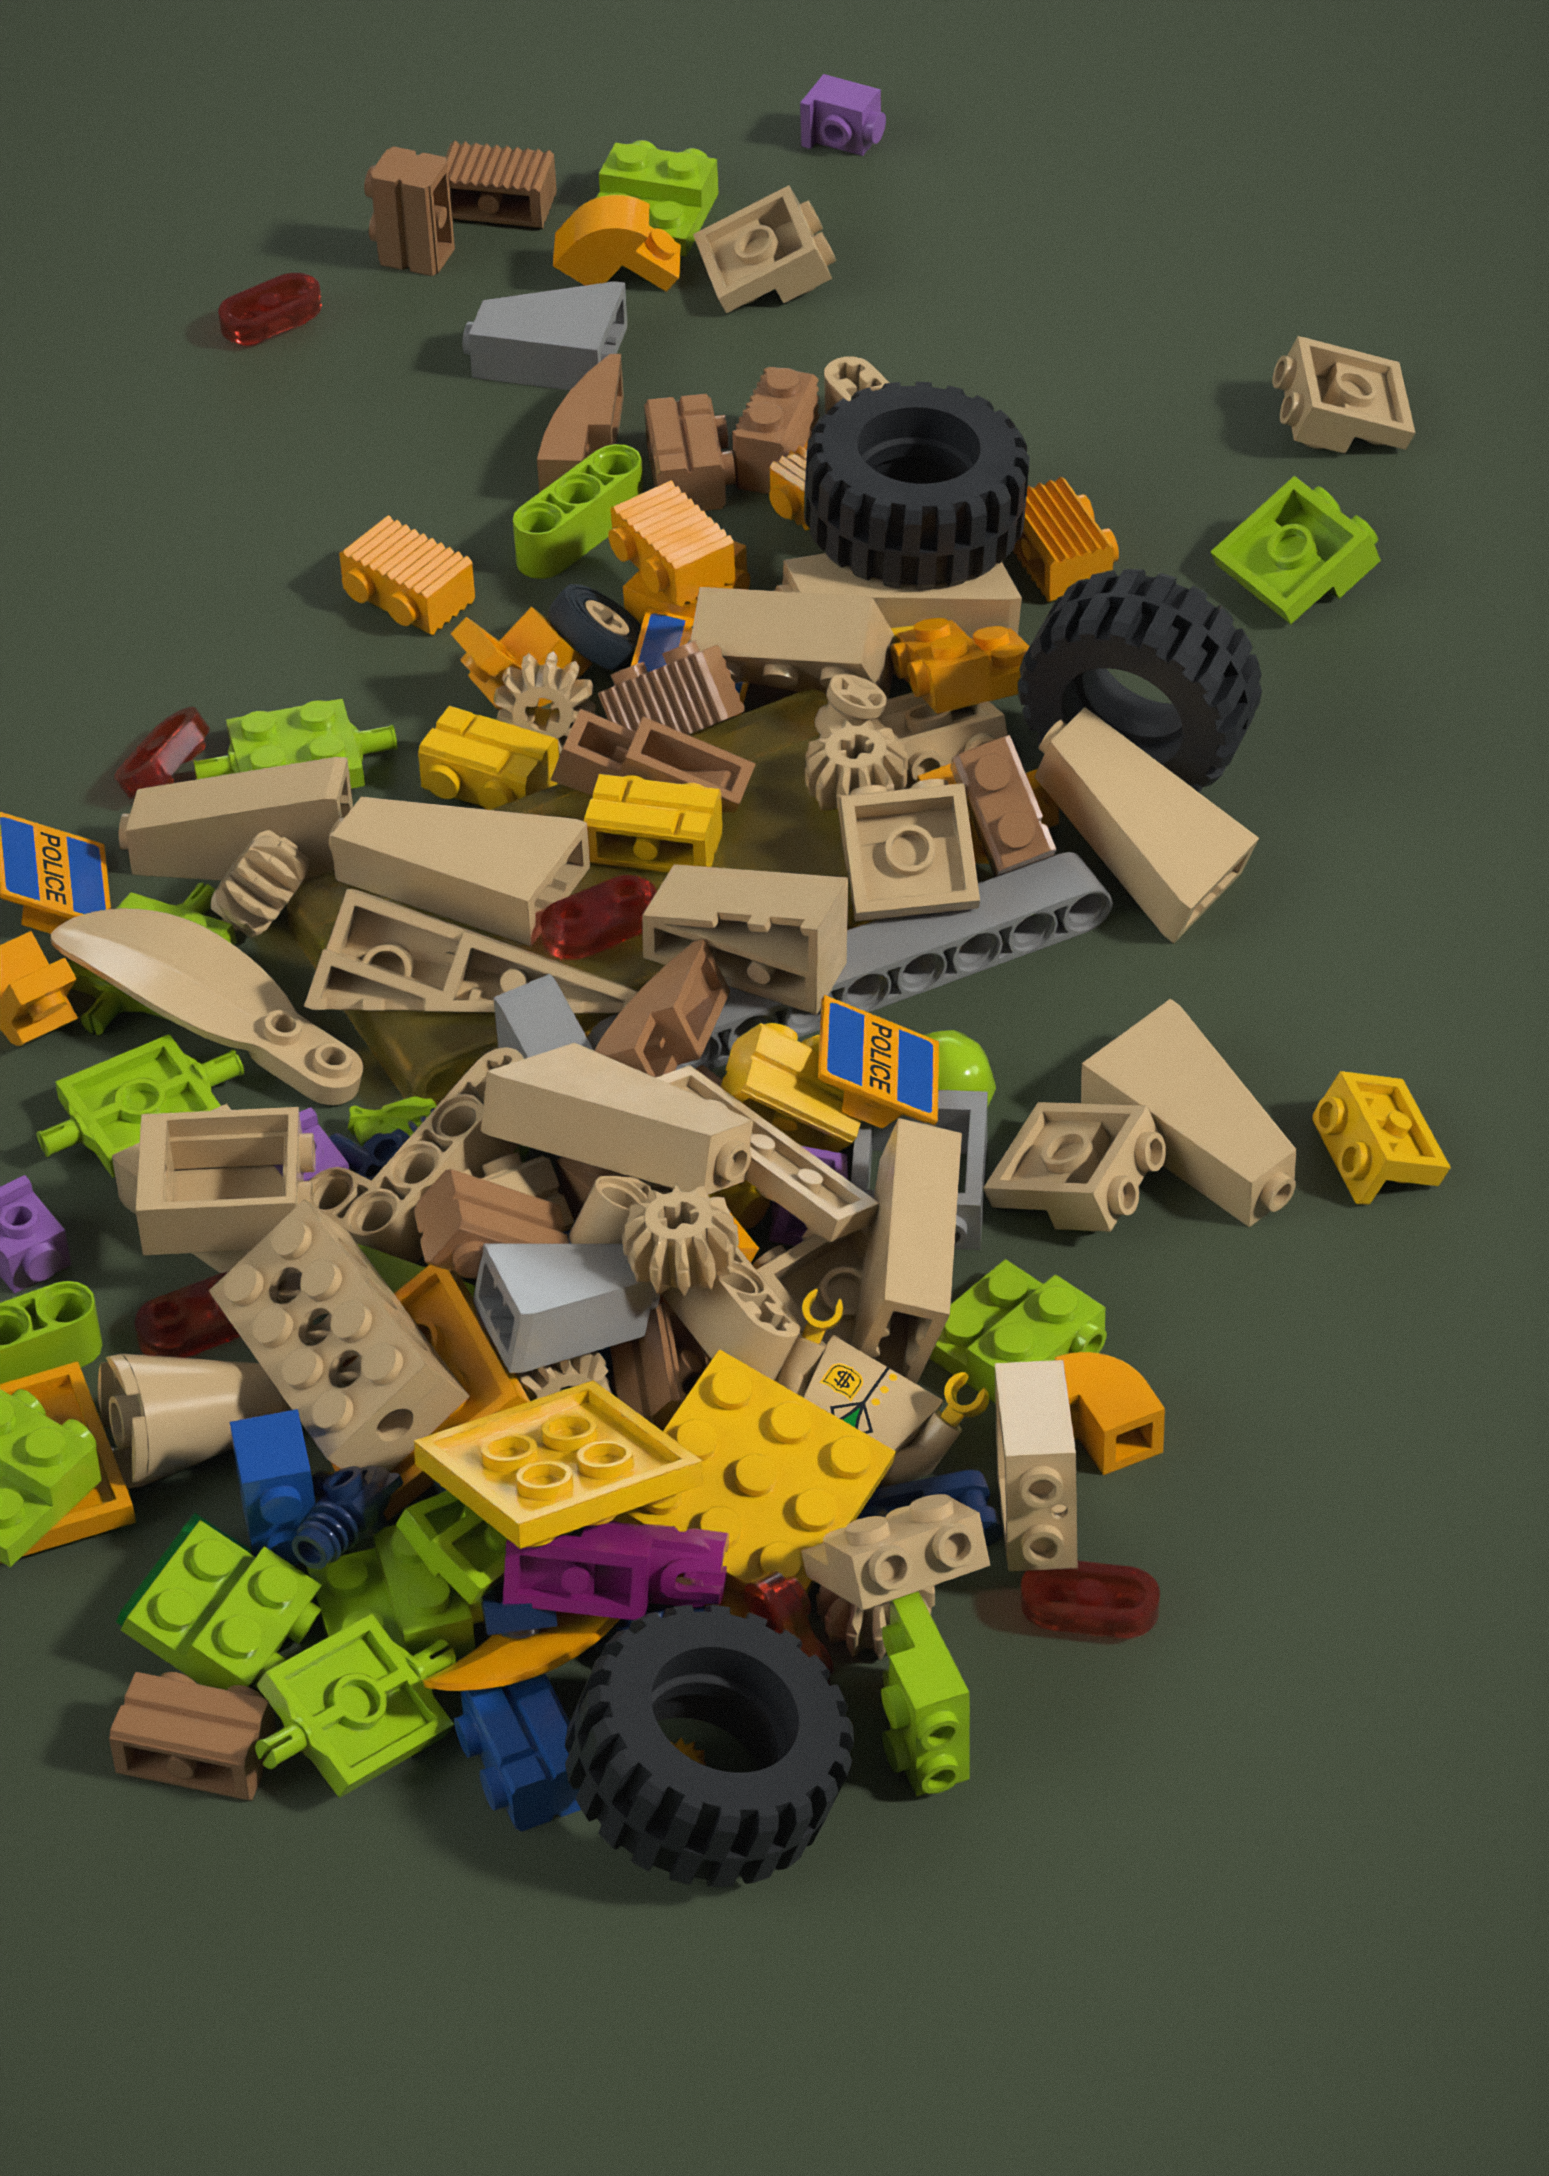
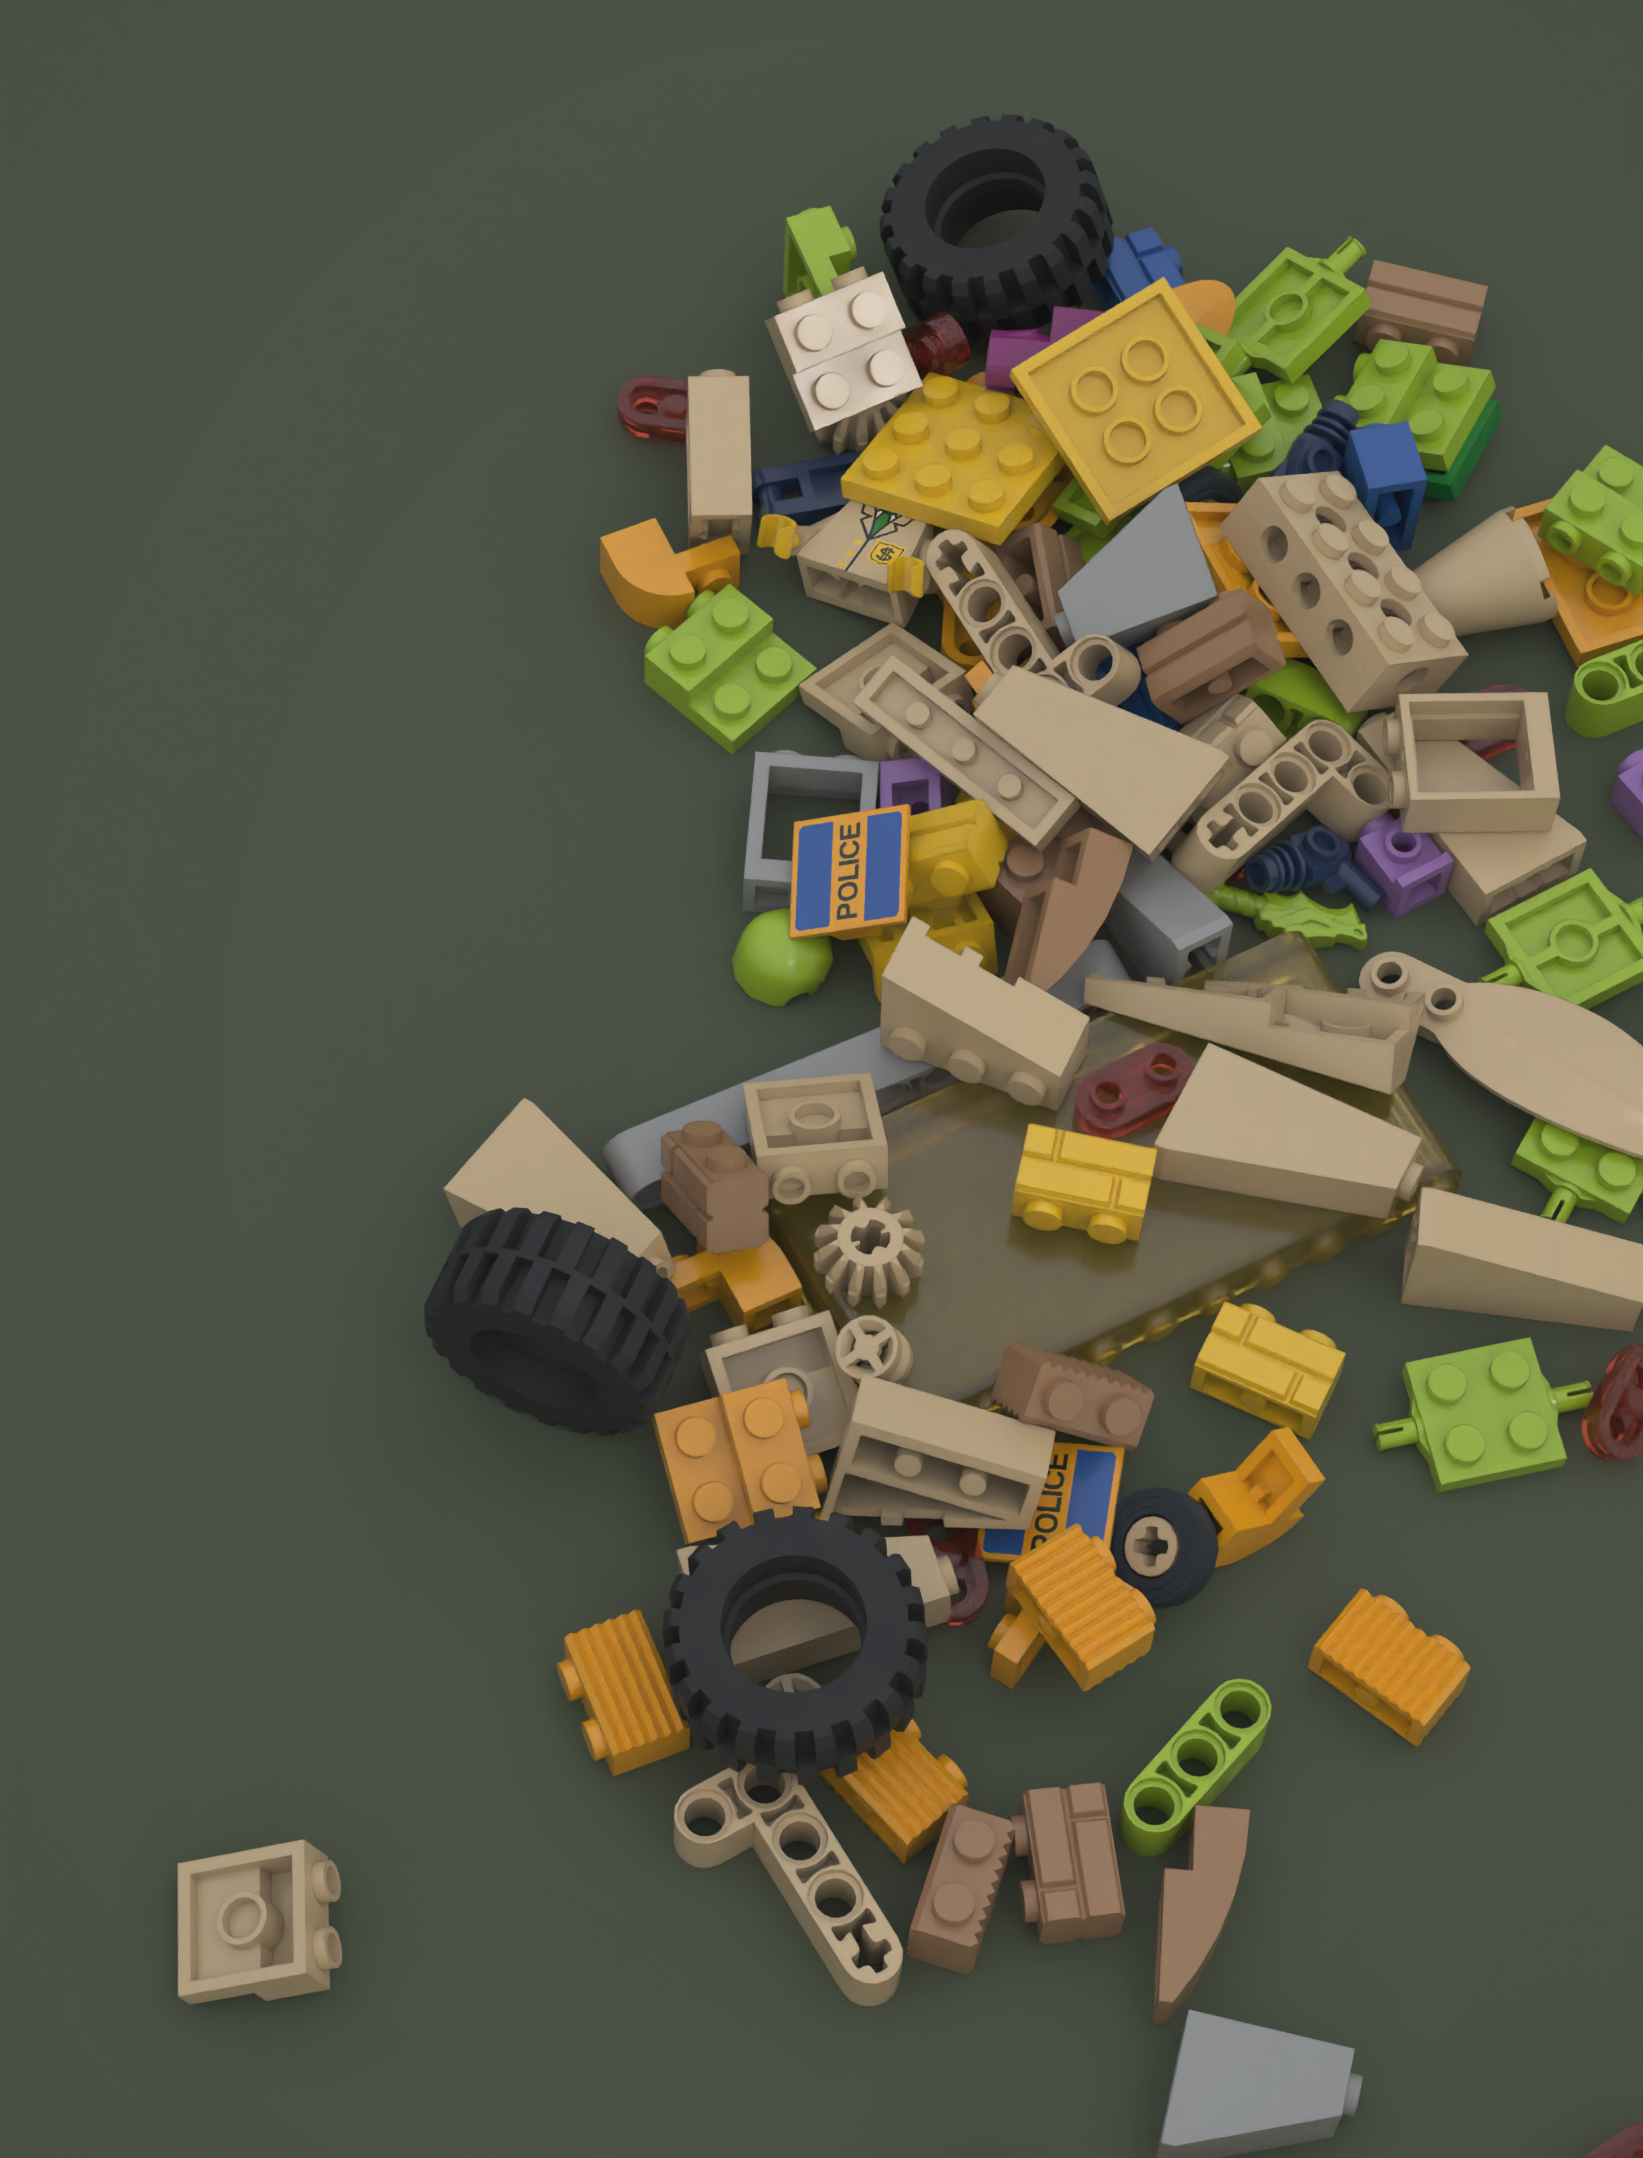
camera: 175 degrees right, 15 degrees up
(260, 883) = (1495, 1167): tan gear -> none
(524, 688) = (1211, 1423): tan gear -> none
(651, 753) = (1090, 1270): medium nougat slope -> none
(680, 1239) = (1037, 585): tan gear -> none
(910, 1249) = (824, 659): tan slope -> none
(1078, 1163) = (659, 828): tan plate -> none
(1208, 1118) = (548, 890): tan slope -> none
(1298, 550) = (345, 1655): lime plate -> none
(1377, 1135) = (363, 859): yellow bracket -> none

